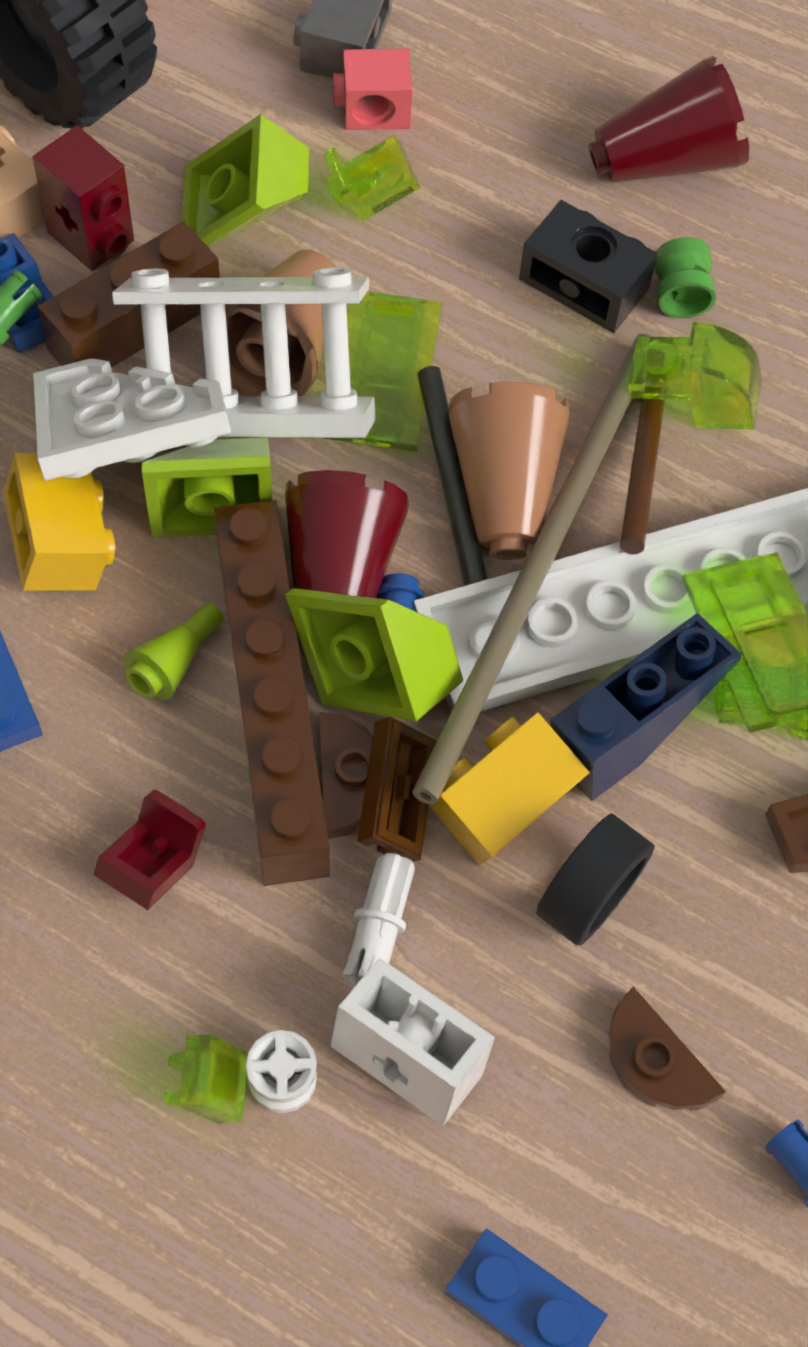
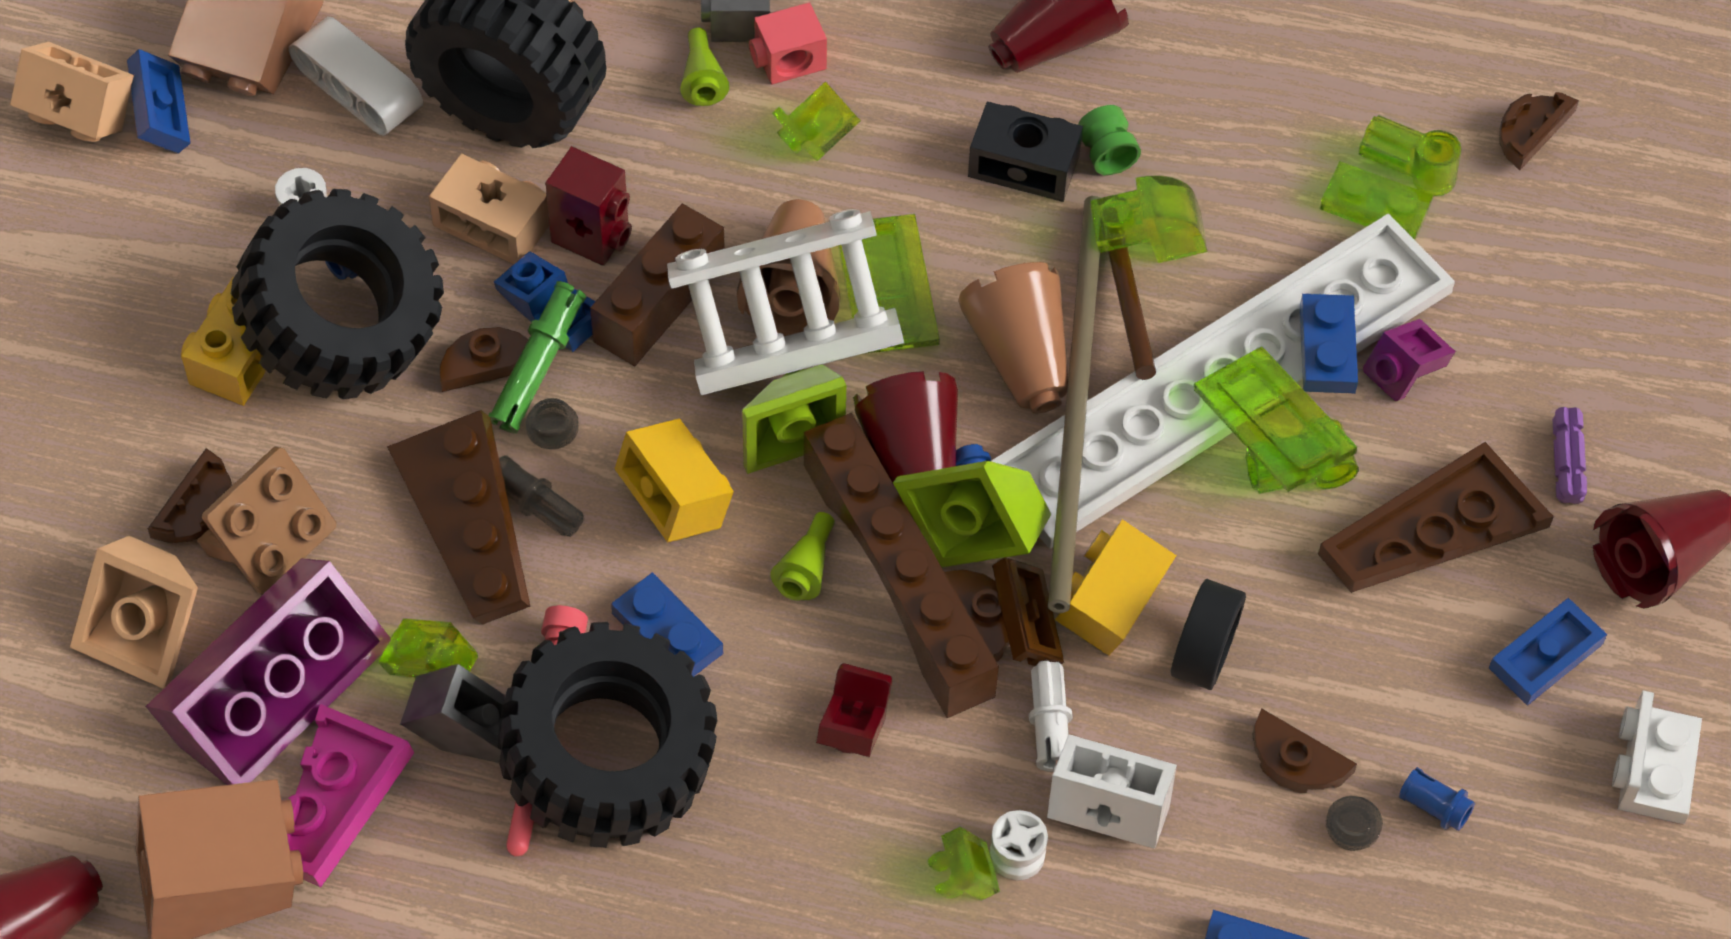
camera: 15 degrees left, 5 degrees down
(109, 417) = (699, 381): white plate -> none
(243, 180) = (708, 155): lime slope -> none
(274, 93) = (703, 77): none -> lime cone
(452, 482) = (976, 355): pearl dark grey bar -> none
(643, 703) = (1198, 490): dark blue slope -> none
(697, 1166) = (1354, 823): none -> clear smoke plate

